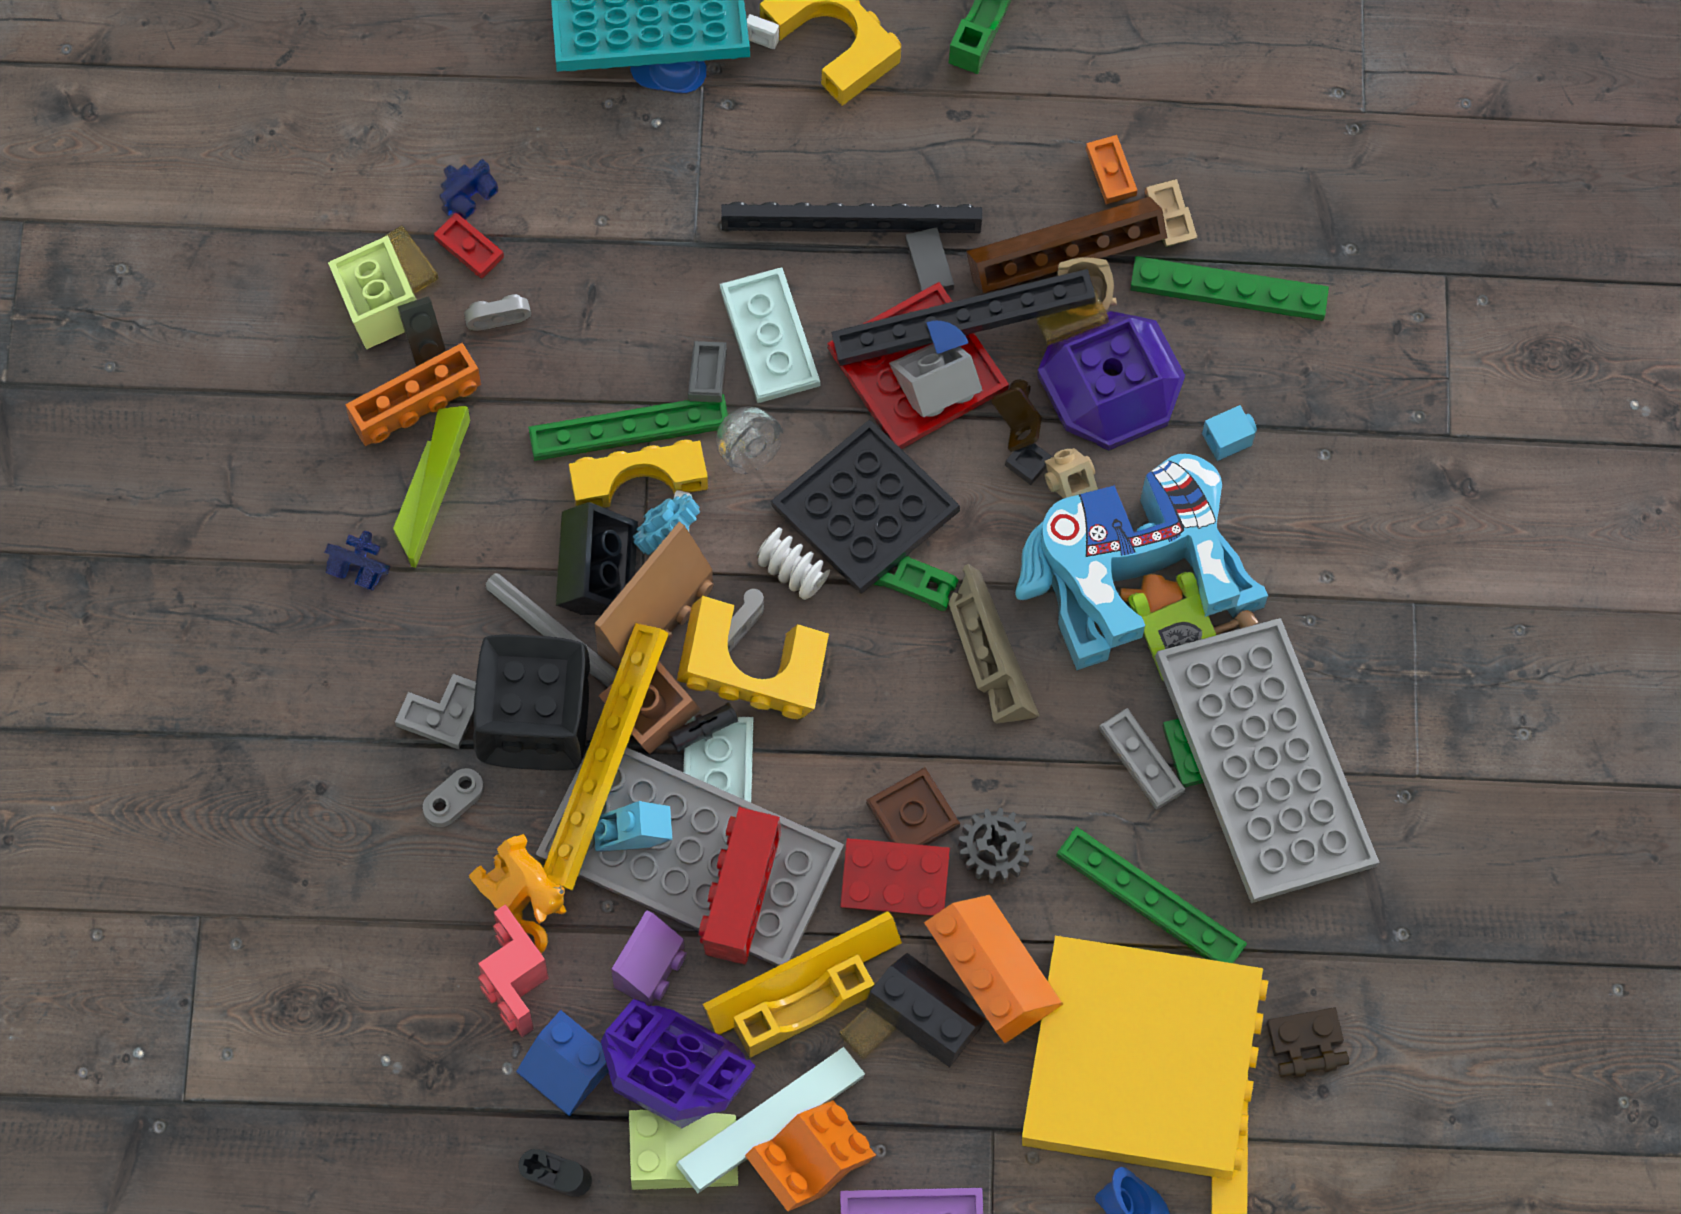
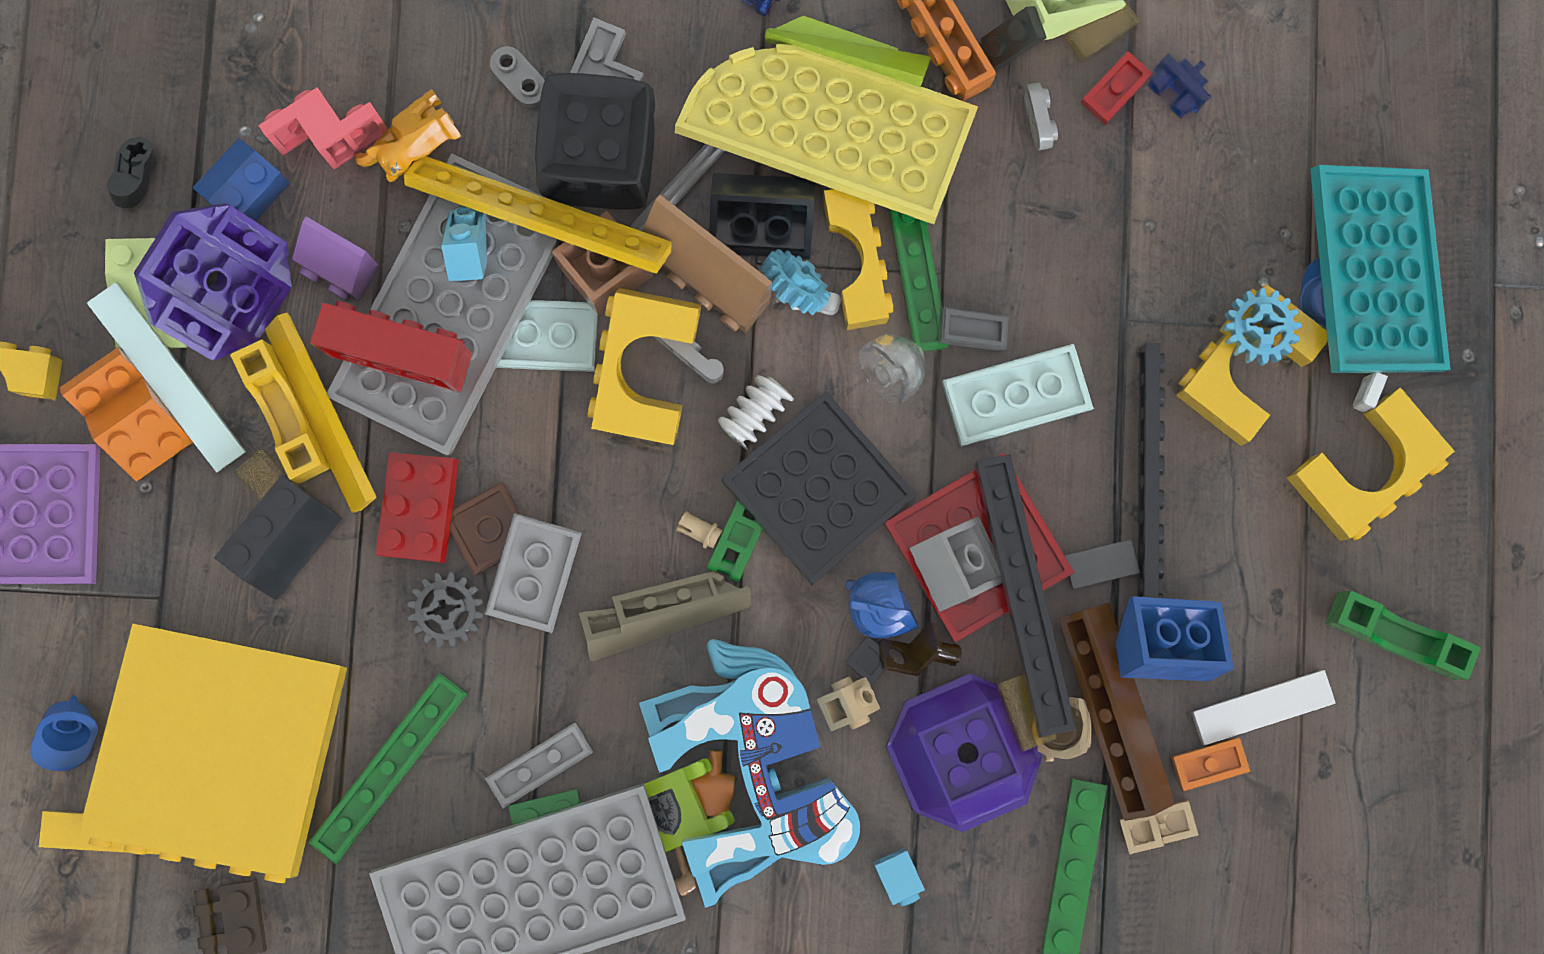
camera: 85 degrees right, 15 degrees up
(509, 493) = (832, 125): none -> light yellow plate
(703, 727) = (566, 297): black pin -> none
(723, 119) = (1262, 341): none -> medium azure gear
(755, 165) = (1213, 392): none -> yellow arch
(909, 614) = (700, 530): none -> tan pin
(945, 336) = (998, 573): blue tile -> none
(956, 766) = (533, 573): none -> light grey tile
(976, 448) = (879, 606): none -> blue helmet
(993, 965) = (309, 601): orange slope -> none
(1000, 193) = (1173, 640): none -> blue slope
(1057, 126) = (1263, 707): none -> white tile

